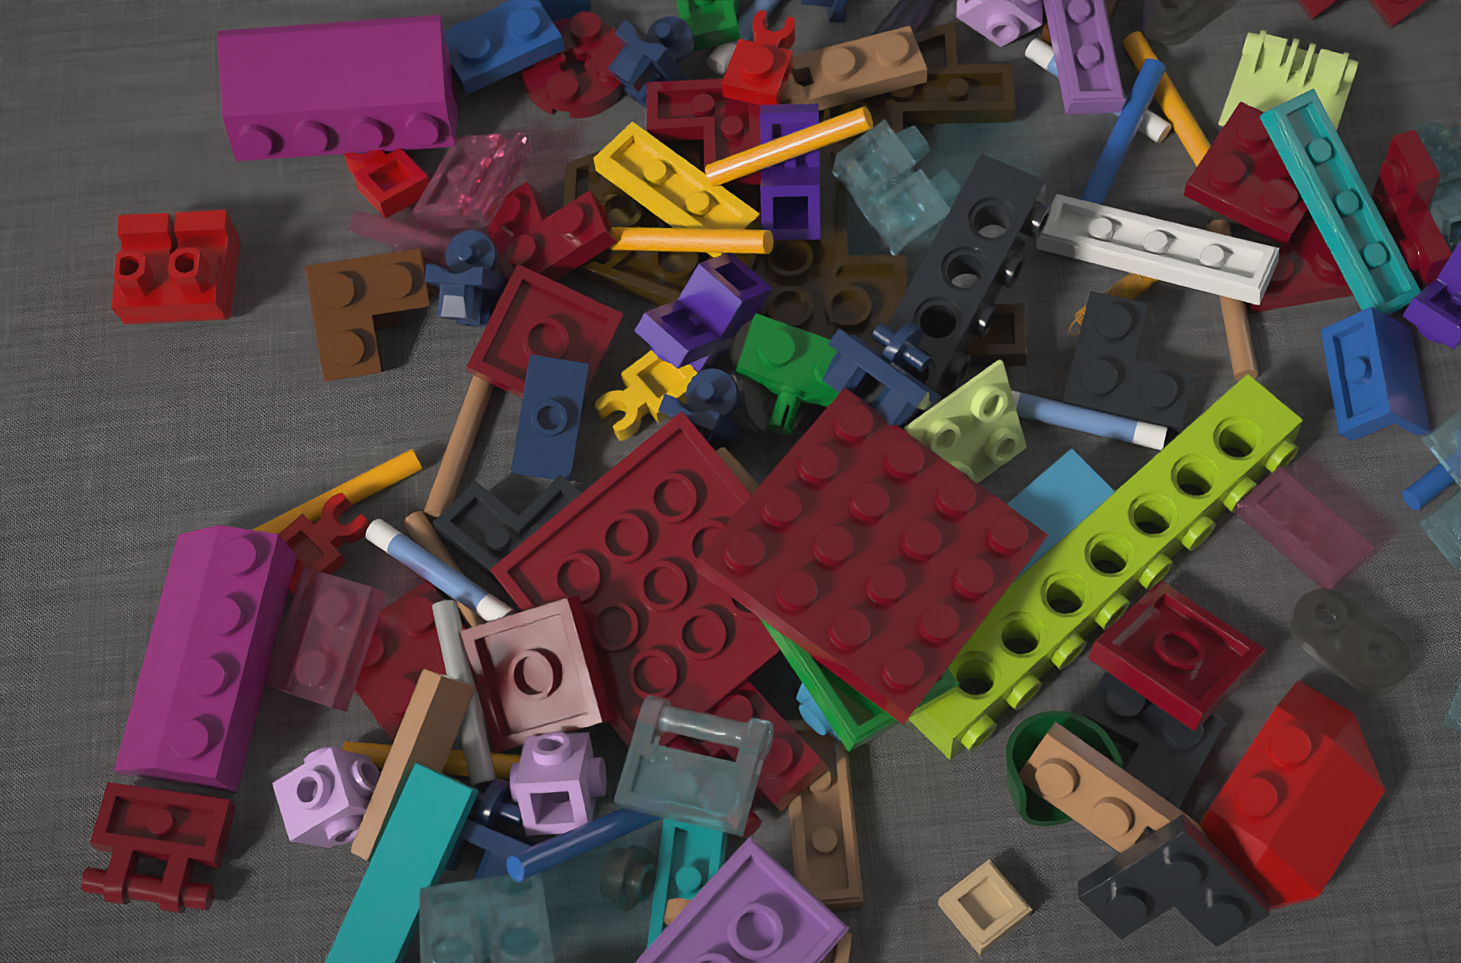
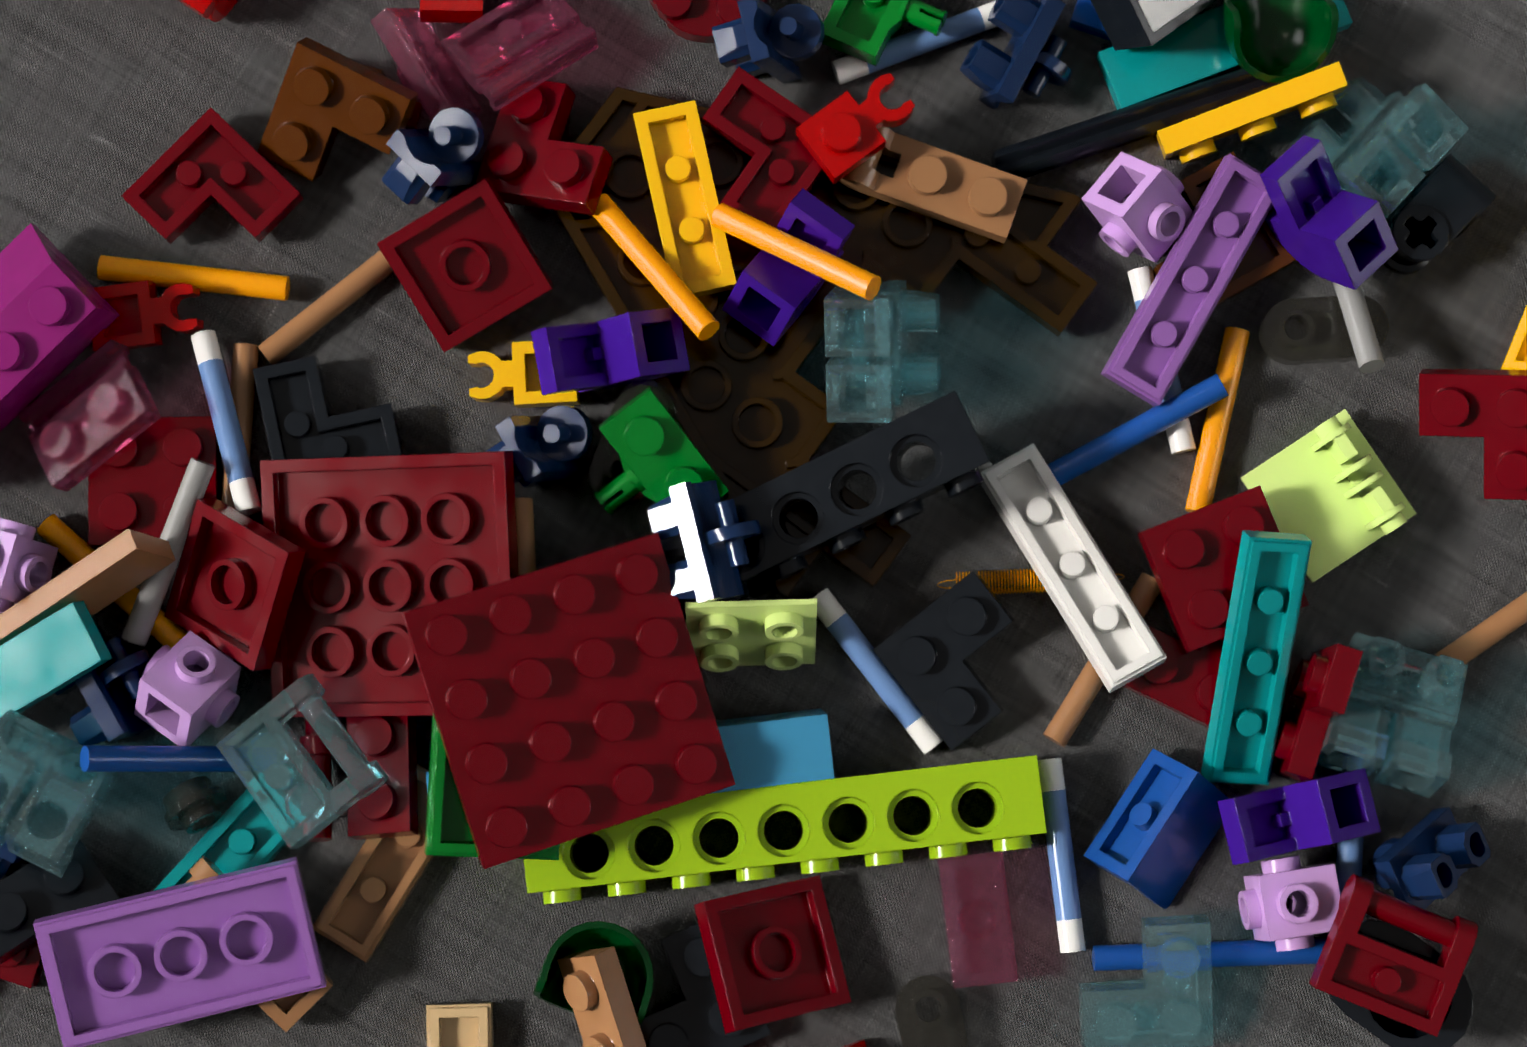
camera: 25 degrees right, 20 degrees up
(295, 410) = (207, 167): none -> dark red plate
(549, 417) = (418, 342): dark blue plate -> none
(1342, 463) = (1061, 857): none -> medium blue bar

